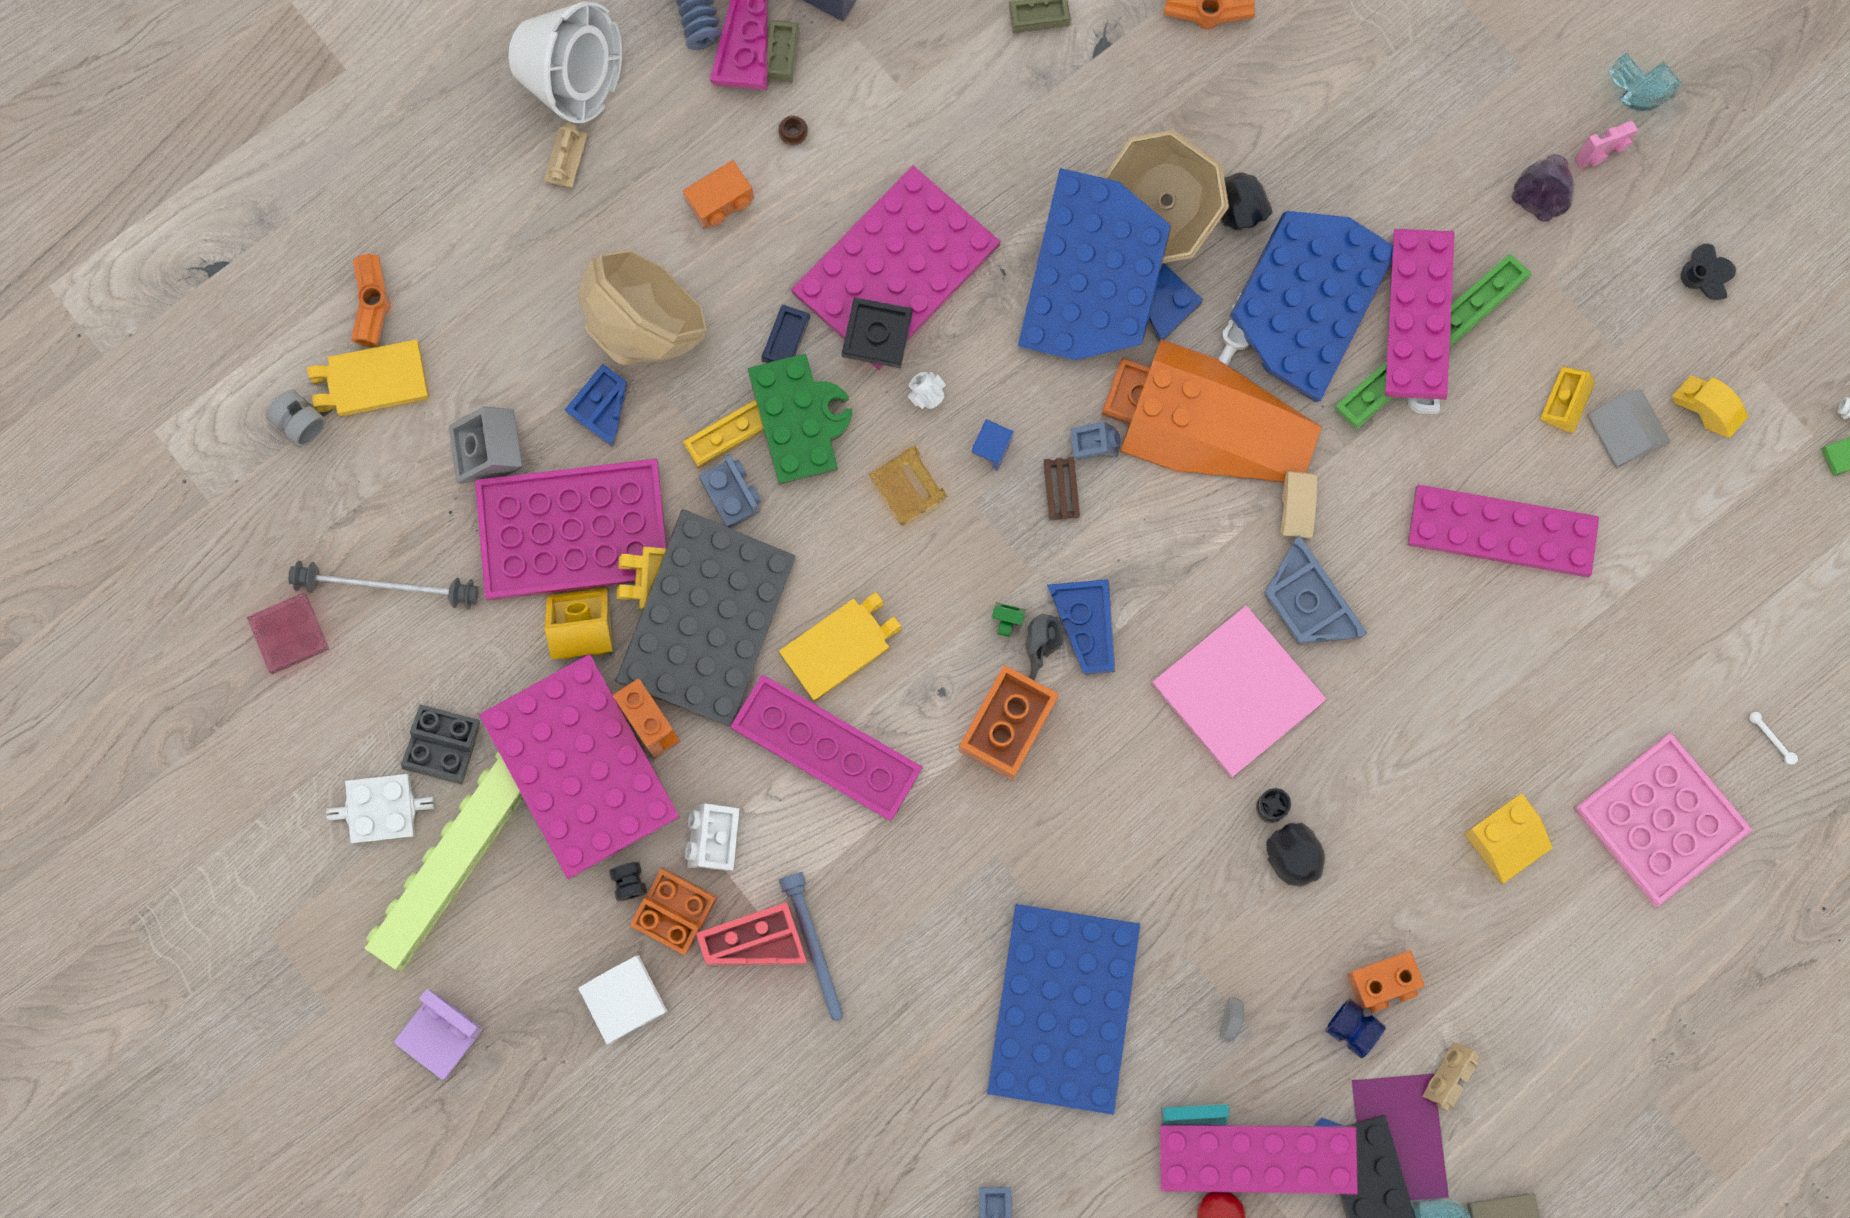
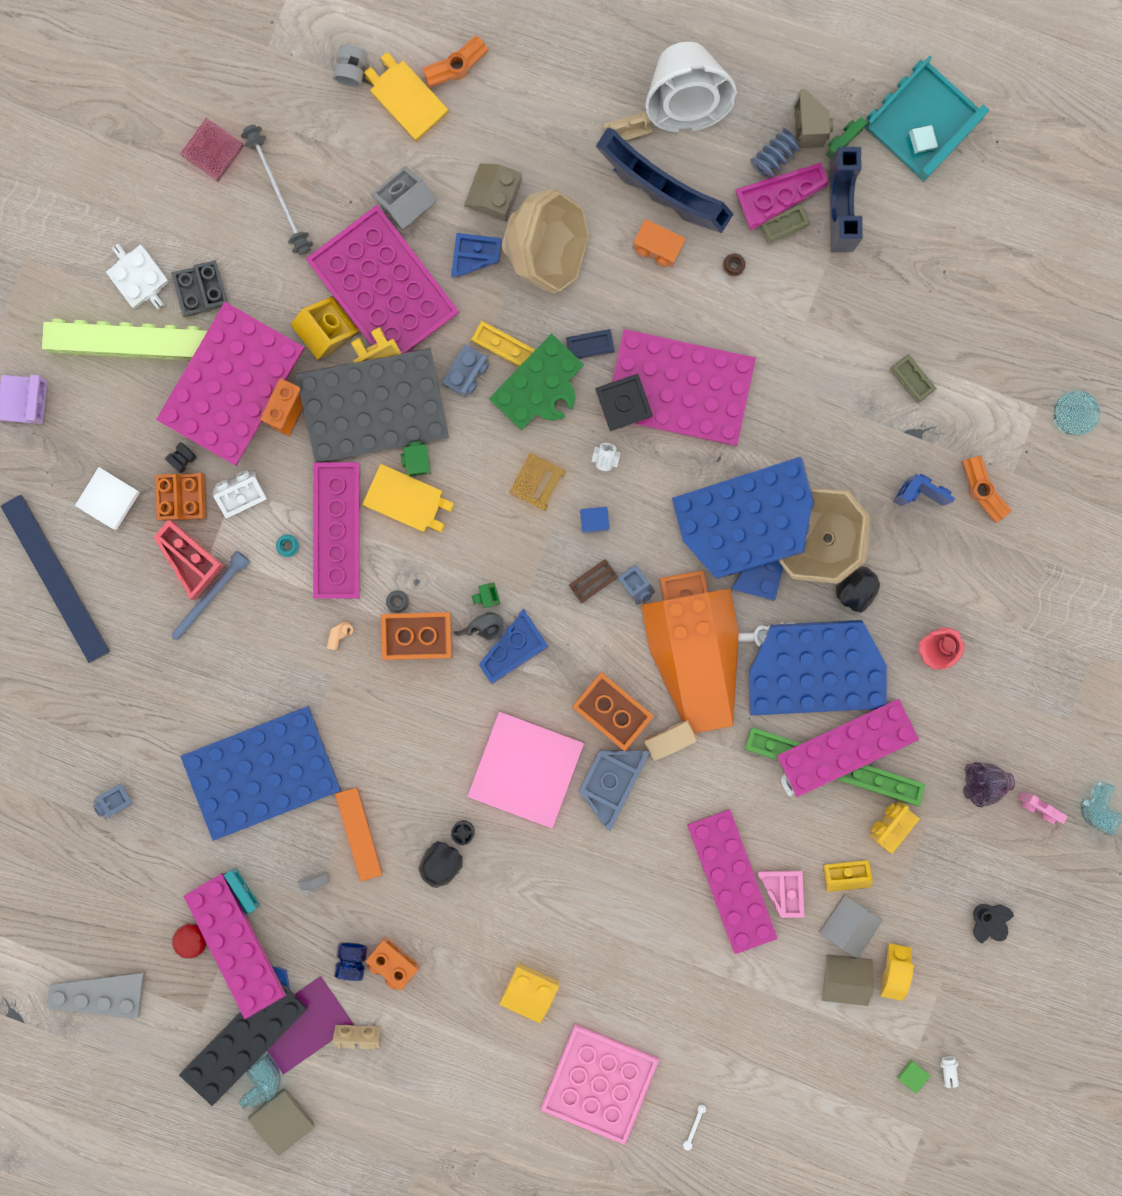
camera: 60 degrees right, 10 degrees up
(542, 341) = (494, 190): none -> dark tan slope
(658, 155) = (662, 187): none -> dark blue arch
(679, 1123) = (55, 578): none -> dark blue tile
(799, 605) = (416, 459): none -> green brick
(806, 807) = (280, 545): none -> teal plate
(949, 817) = (338, 632): none -> light nougat arm
(957, 717) = (390, 601): none -> dark grey plate
(1168, 65) = (921, 483): none -> blue bracket
(1205, 932) = (358, 834): none -> orange tile
(1228, 548) = (612, 711): none -> orange brick
(1364, 148) = (941, 648): none -> coral hair
(1538, 315) = (894, 826): none -> yellow bracket
(1548, 476) = (786, 891): none -> bright pink wing
(1691, 465) = (848, 980): none -> dark tan slope

